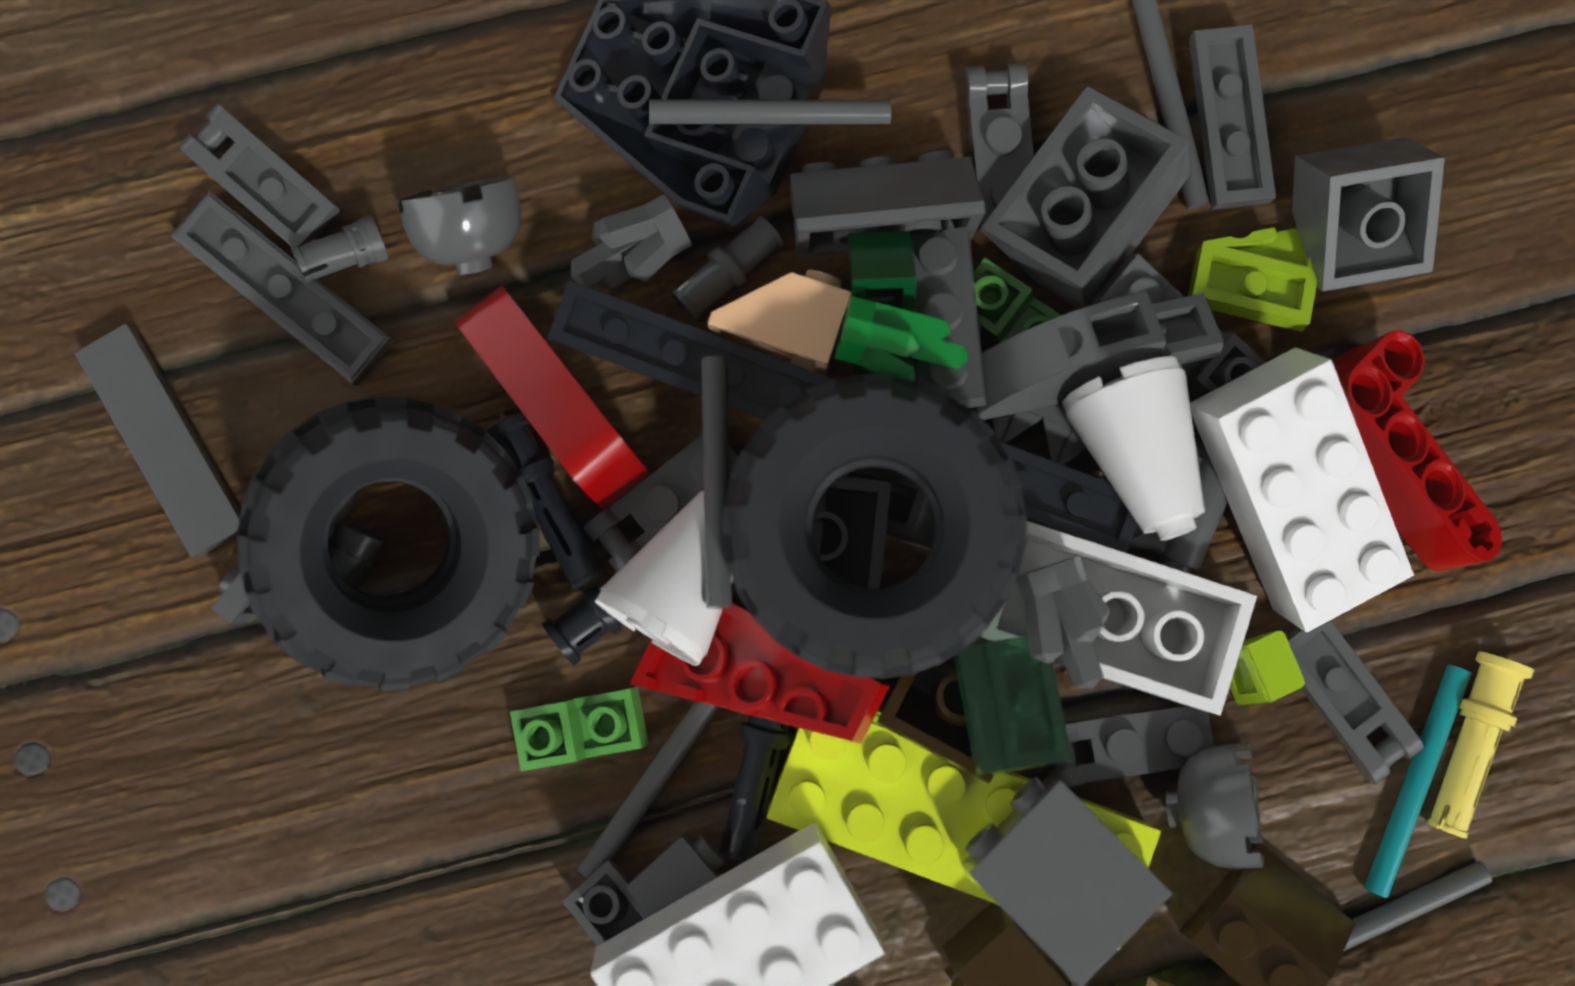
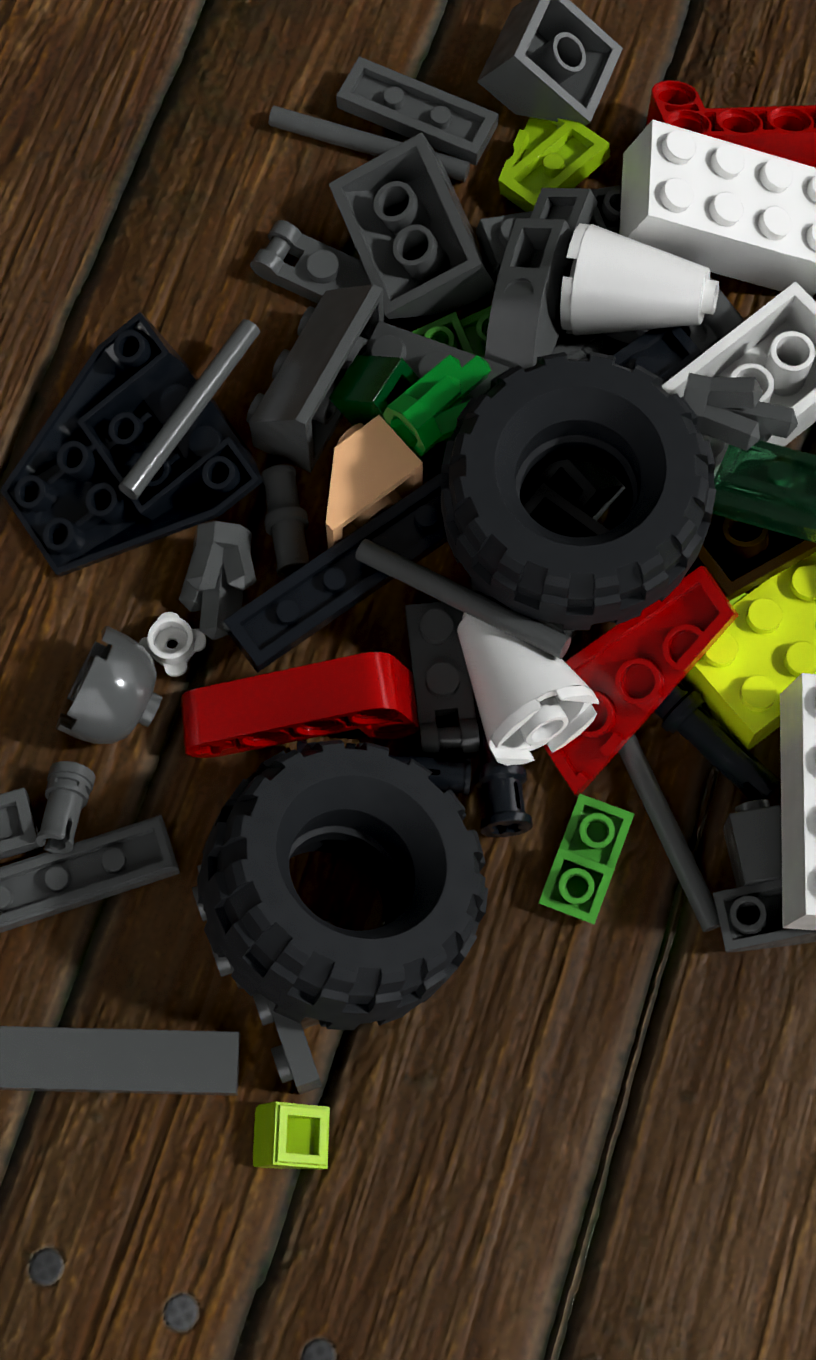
camera: 55 degrees left, 15 degrees down
(188, 625) = (291, 1136): none -> lime slope
(542, 228) = (172, 627): none -> white plate

